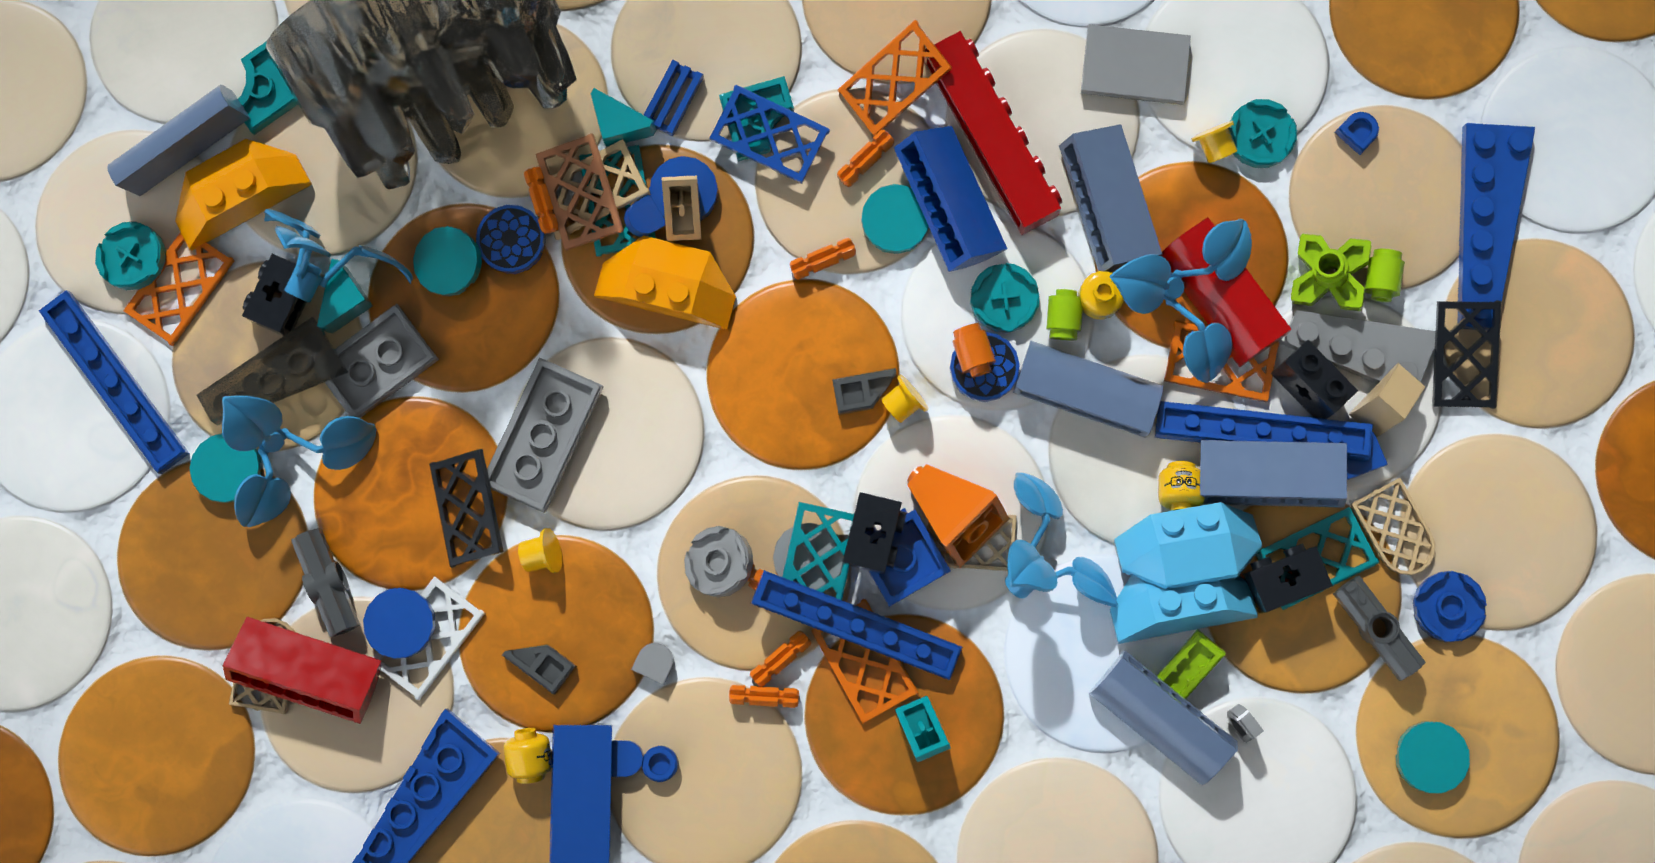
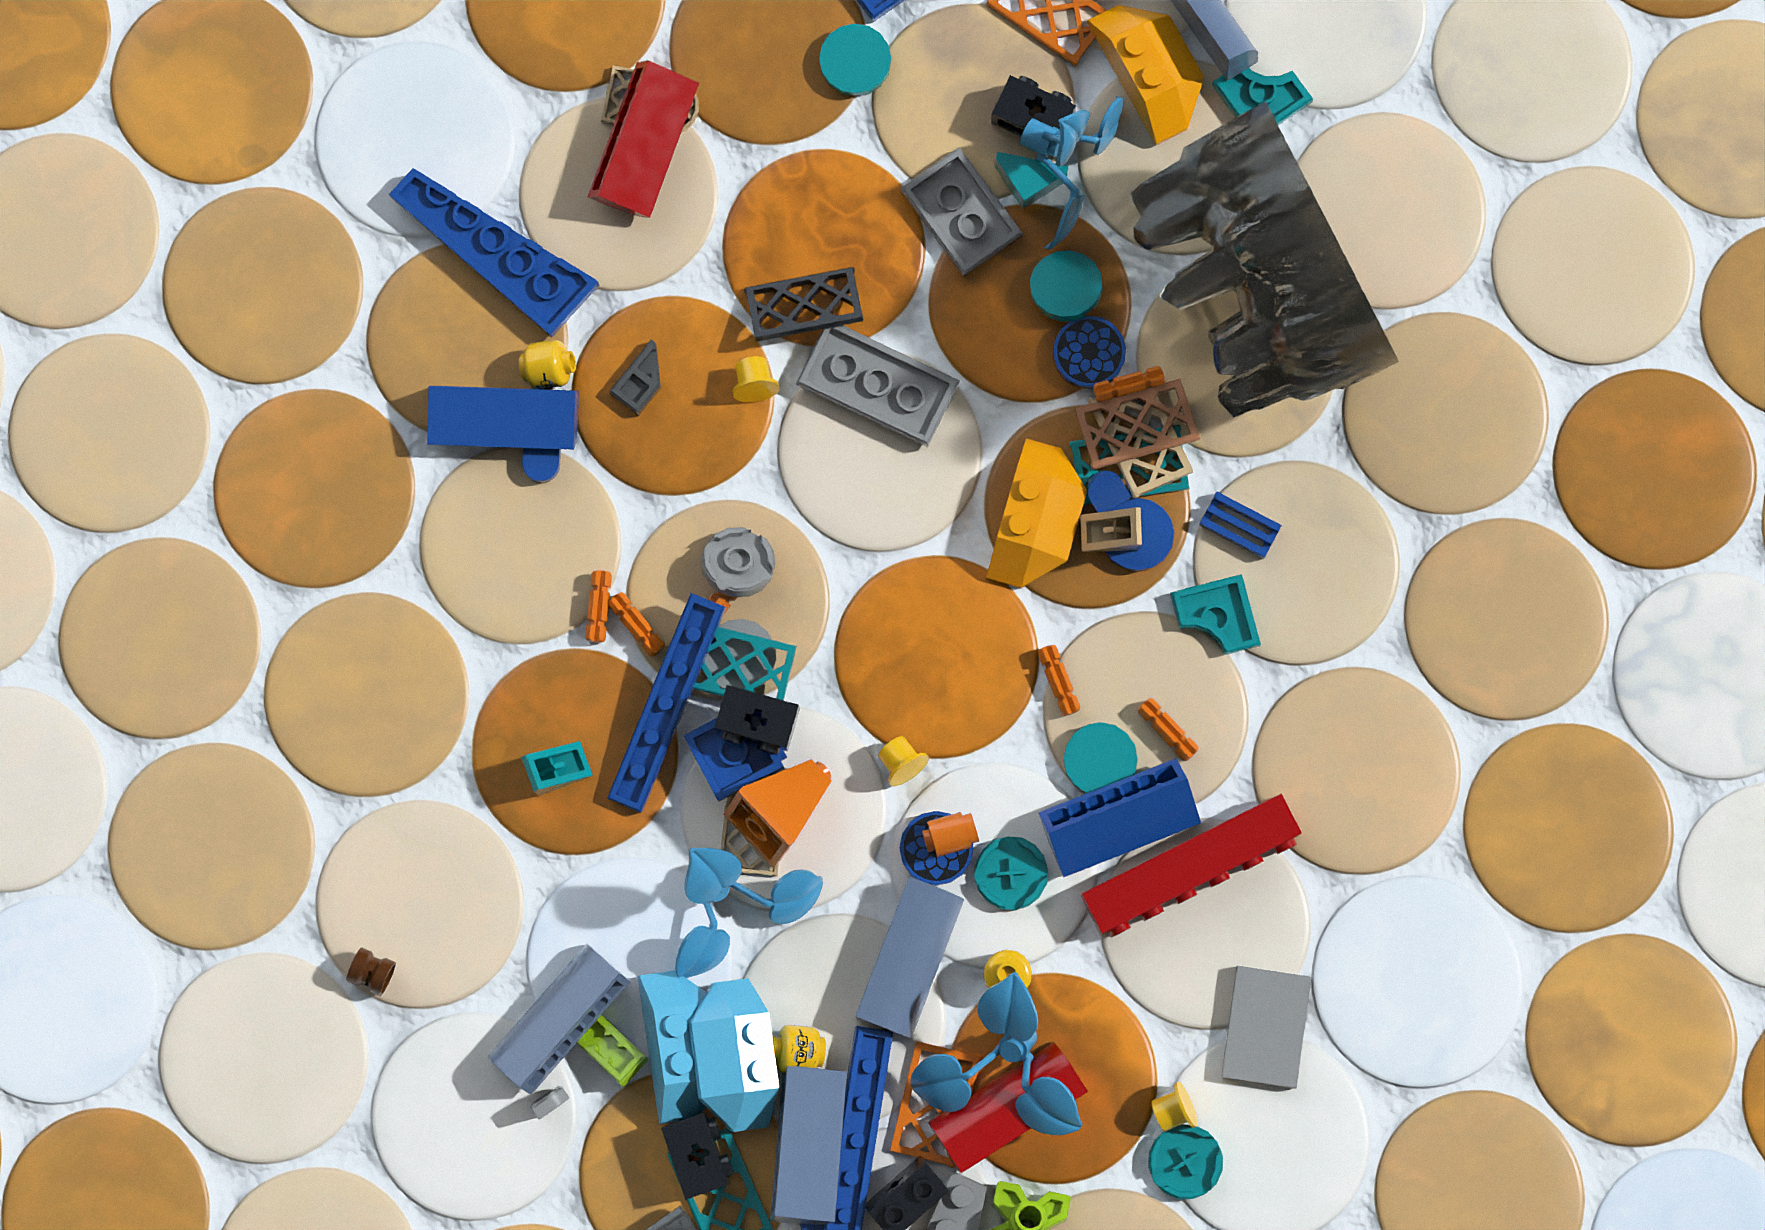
camera: 90 degrees right, 0 degrees up
(256, 423) = (888, 96): dark azure plant -> none
(280, 370) = (954, 115): clear smoke wing -> none
(325, 582) = (732, 161): dark grey piece -> none
(399, 623) = (687, 236): blue tile -> none
(457, 639) = (671, 295): white window -> none
(620, 121) = (1212, 465): teal slope -> none
(654, 662) = (637, 495): light grey tile -> none
(660, 763) = (534, 499): blue tile -> none
(773, 162) = (1226, 620): blue window -> none
(852, 689) = (602, 698): orange window -> none
(862, 390) = (914, 717): dark grey tile -> none
(921, 84) = (1244, 789): orange window -> none
(1064, 315) = (988, 934): lime brick -> none
(1109, 197) = (1114, 990): sand blue brick -> none

